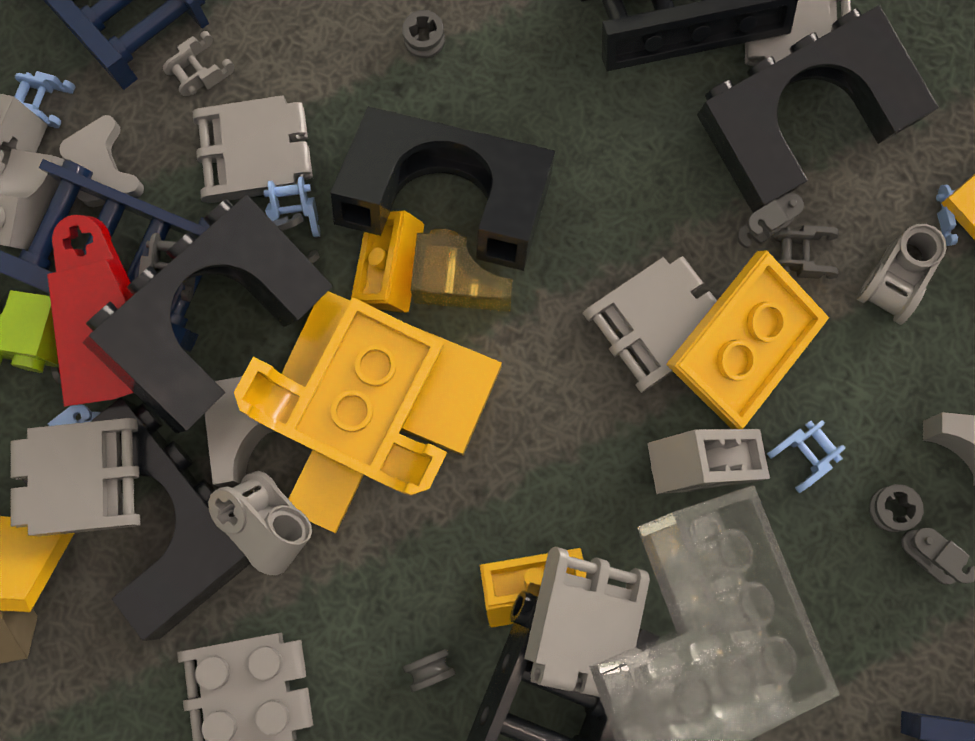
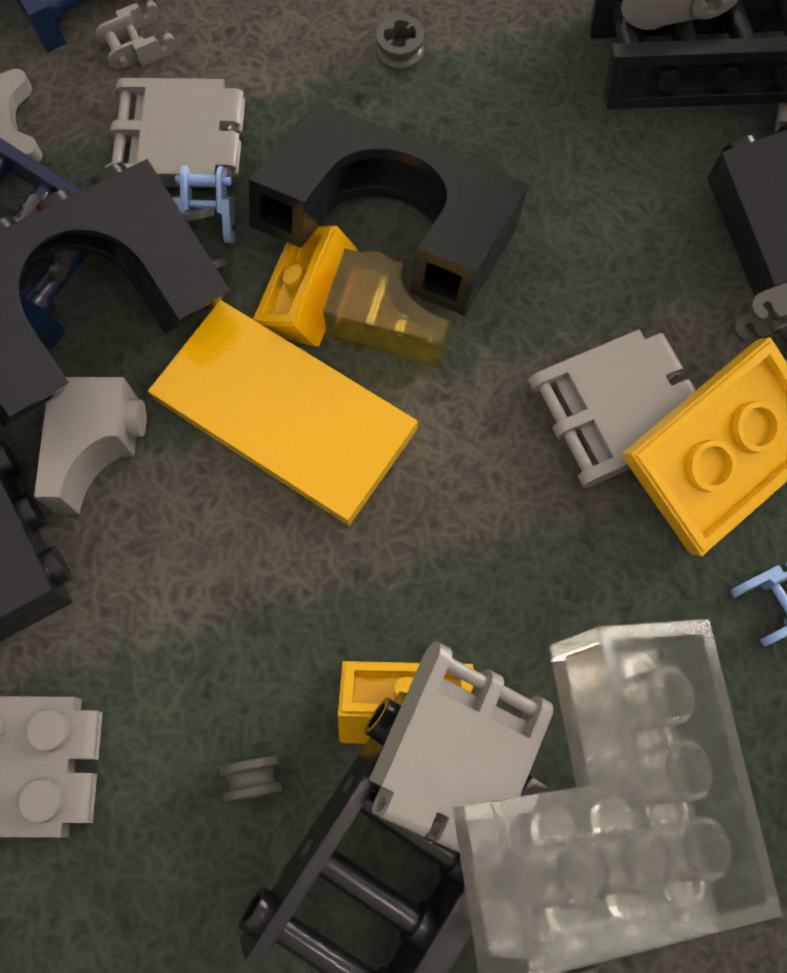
camera: 10 degrees right, 5 degrees down
(264, 522) = (85, 554): light grey piece -> none
(325, 491) = (183, 517): yellow slope -> none
(355, 399) = (226, 426): yellow piece -> none
(707, 459) = (653, 580): light grey arch -> none

